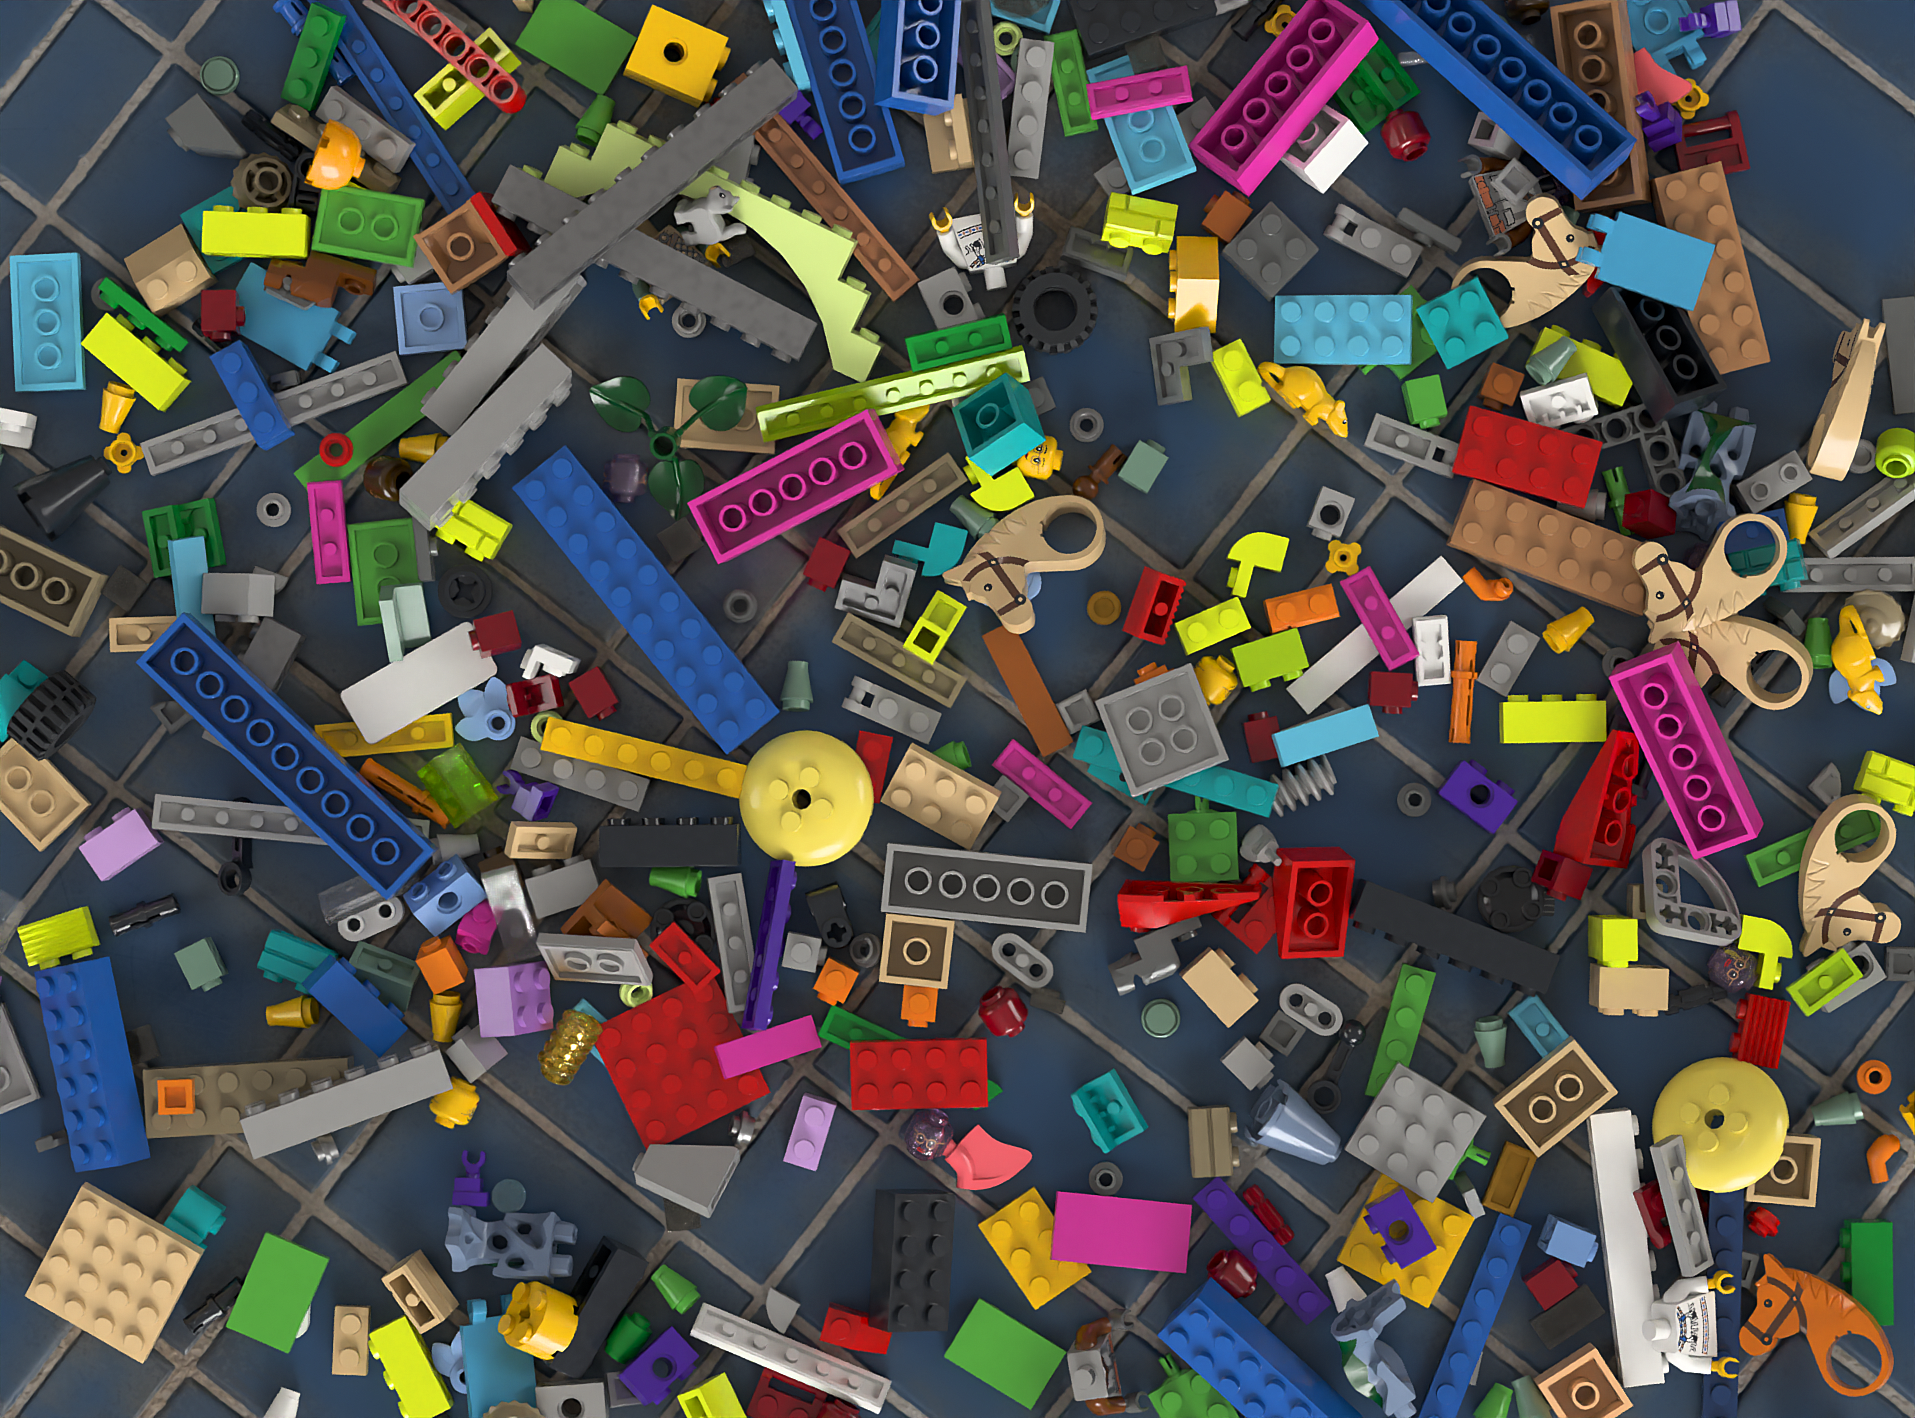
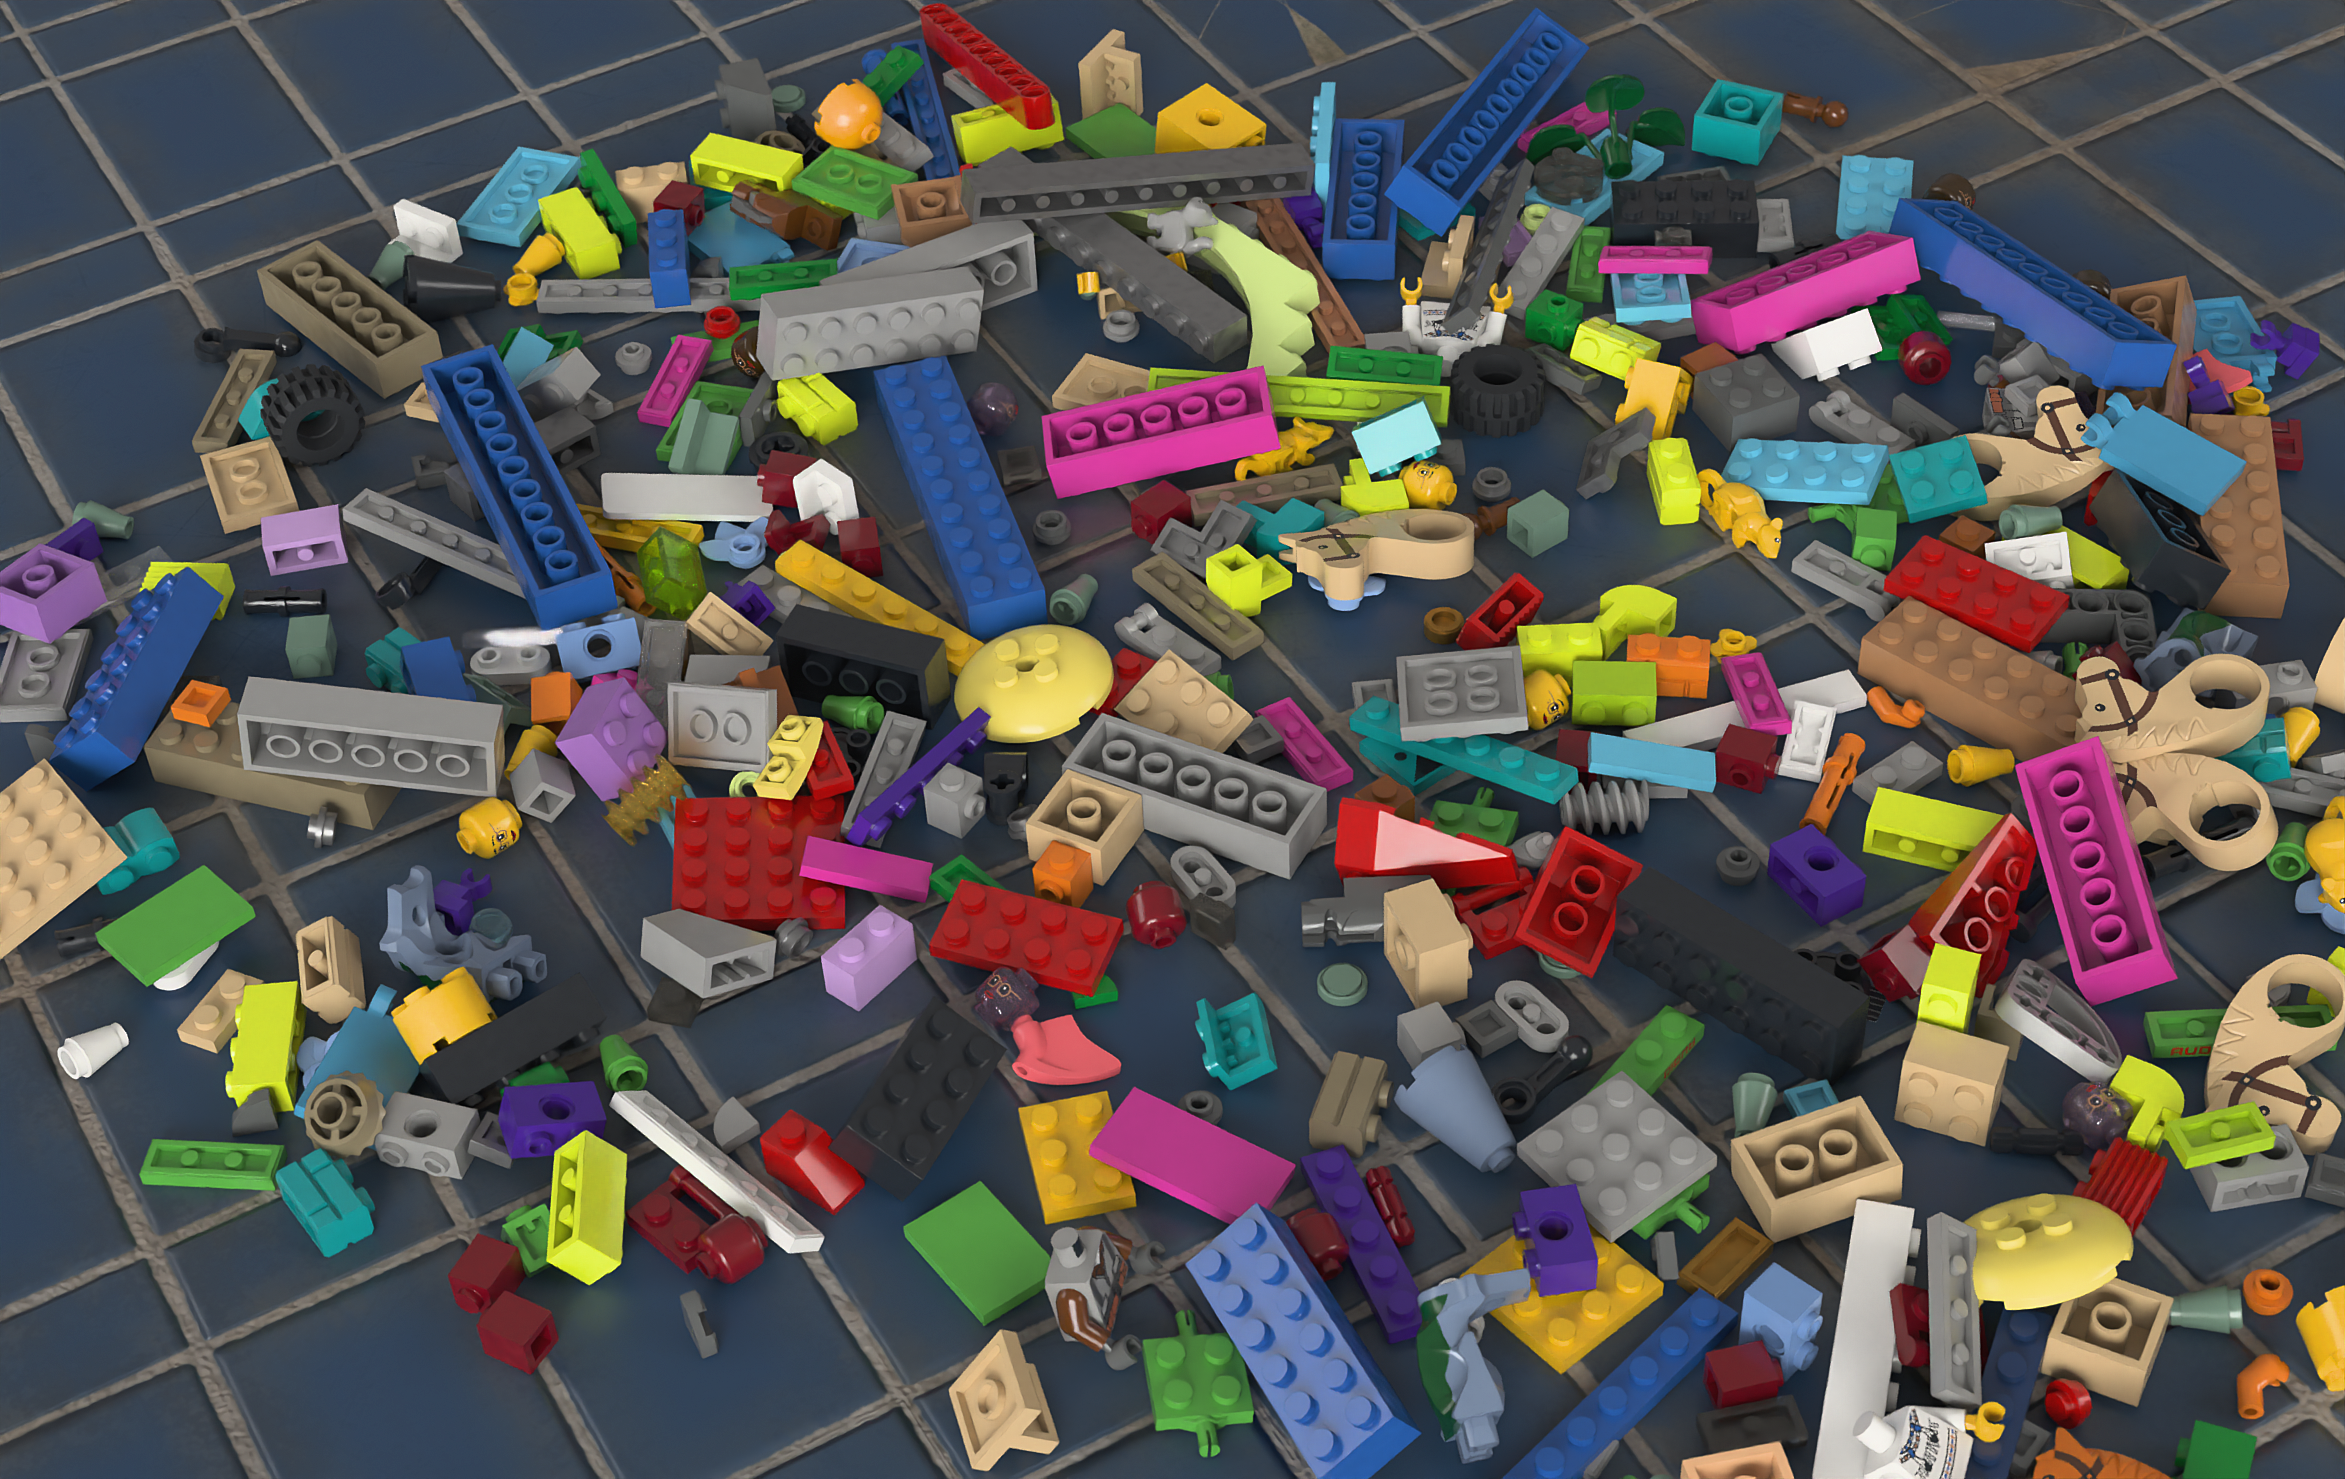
camera: 25 degrees right, 45 degrees down
(368, 382) = (752, 281): none -> green plate
(666, 974) = (793, 751): none -> light yellow slope
(674, 483) = (1021, 361): dark green plant -> none
(835, 981) = (979, 832): orange brick -> none
(1027, 690) = (1326, 665): dark orange tile -> none
(1068, 185) = (1553, 319): none -> green brick
(1337, 500) = (1733, 602): light grey brick -> none

